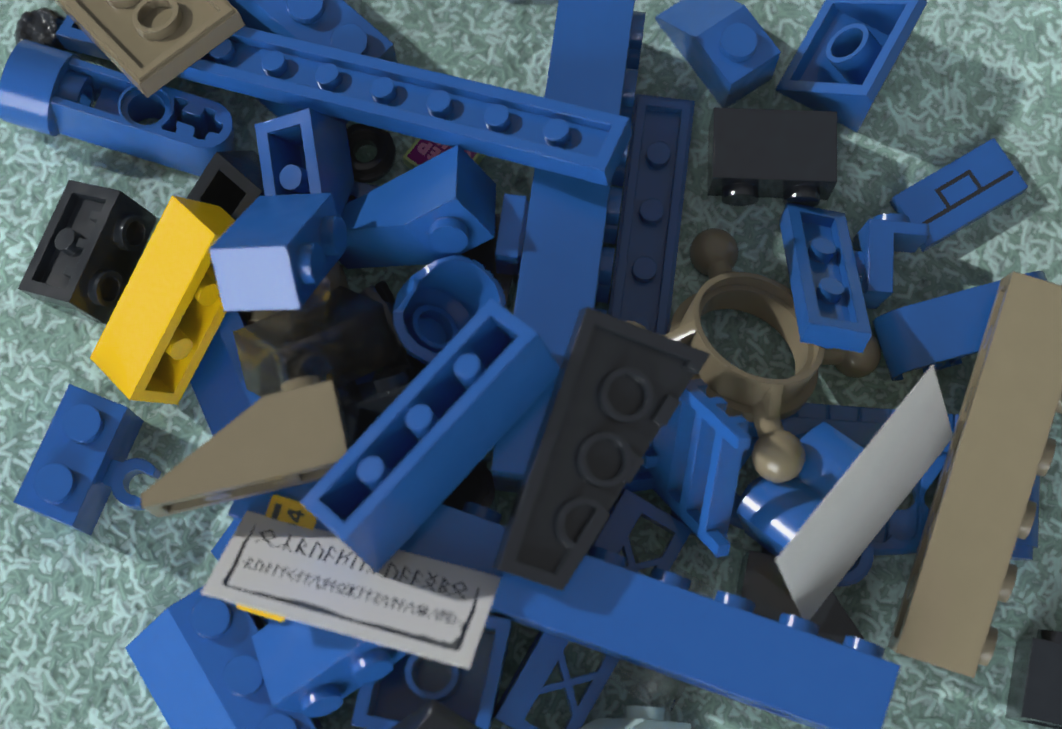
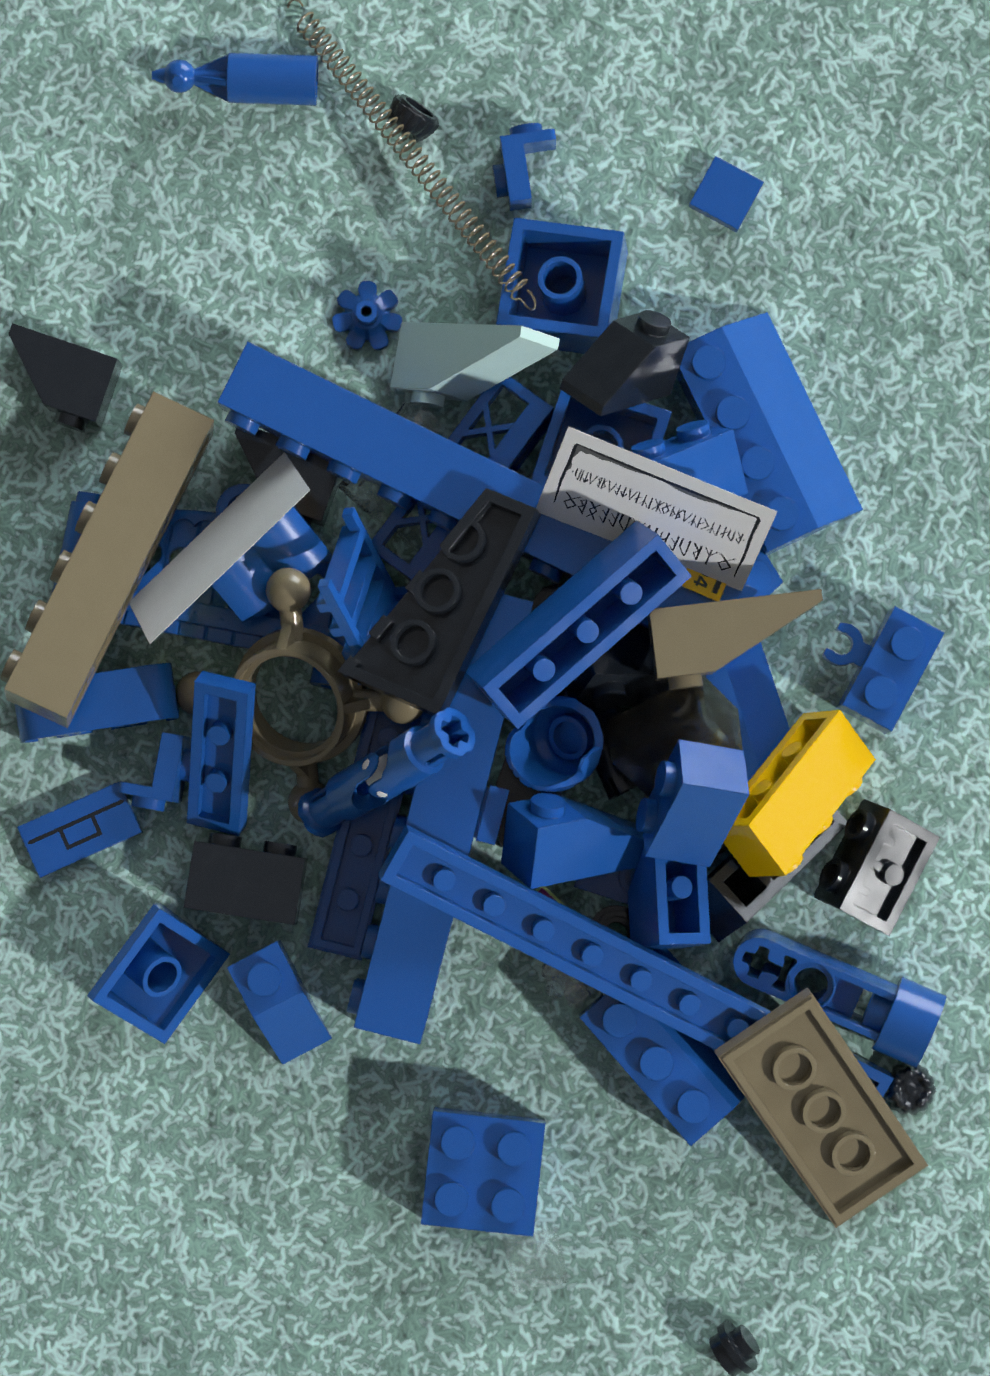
camera: 175 degrees left, 10 degrees up
(625, 258) = (386, 772): none -> blue piece

